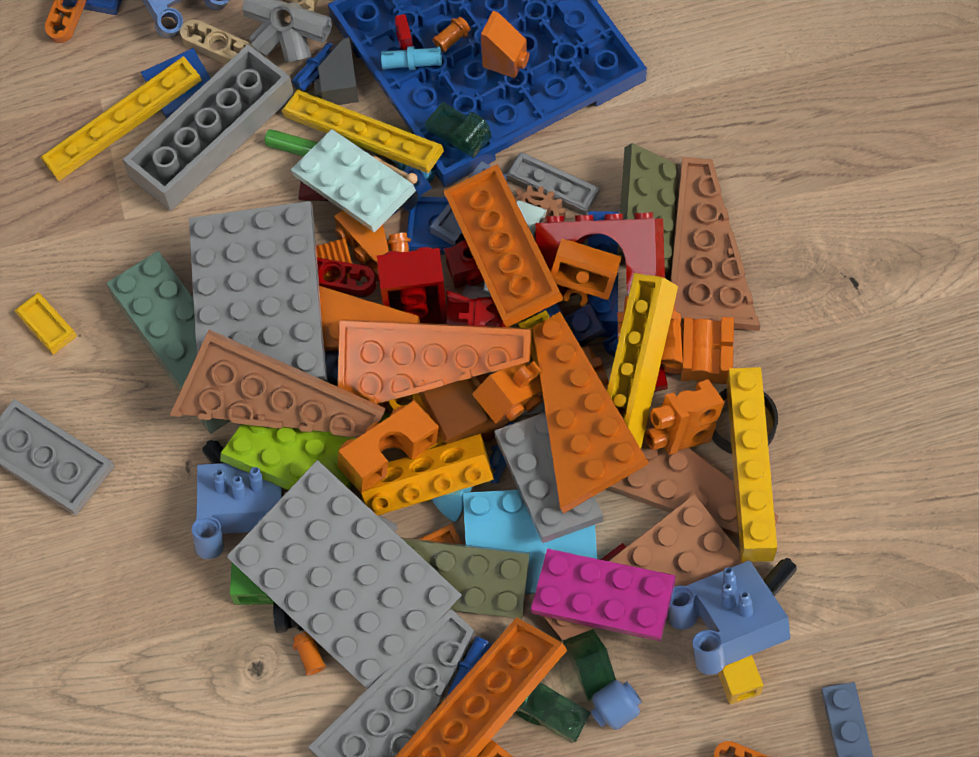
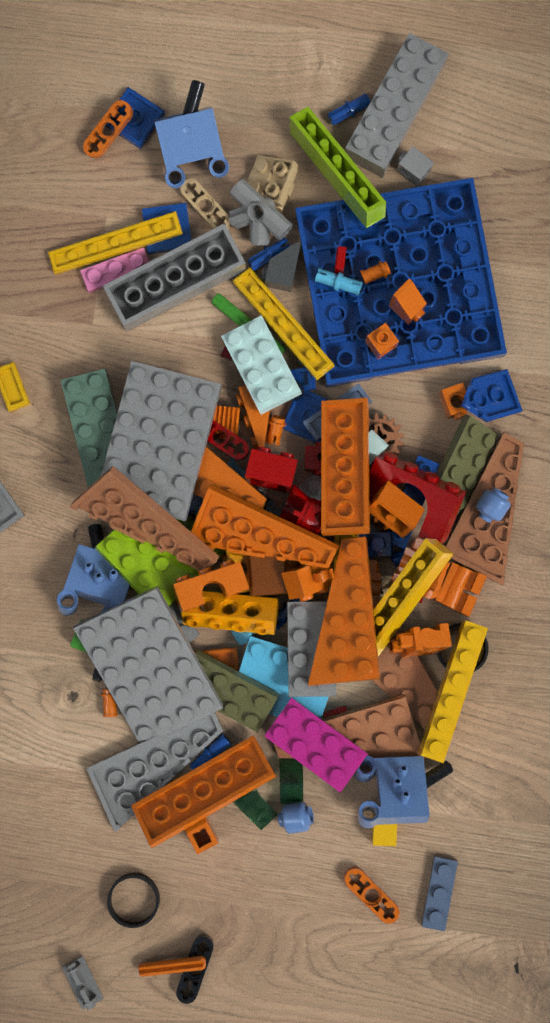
camera: 15 degrees right, 20 degrees up
(110, 164) = (107, 271): none -> bright pink plate
(411, 177) = (302, 379): light nougat hinge -> none
(462, 131) = (350, 354): clear green plate -> none
(490, 99) = (381, 341): none -> orange brick
(573, 192) = (404, 414): light grey tile -> none
(607, 134) = (456, 391): none -> orange brick
(650, 121) = (492, 396): none -> blue tile
(705, 234) = (493, 505): none -> medium blue head

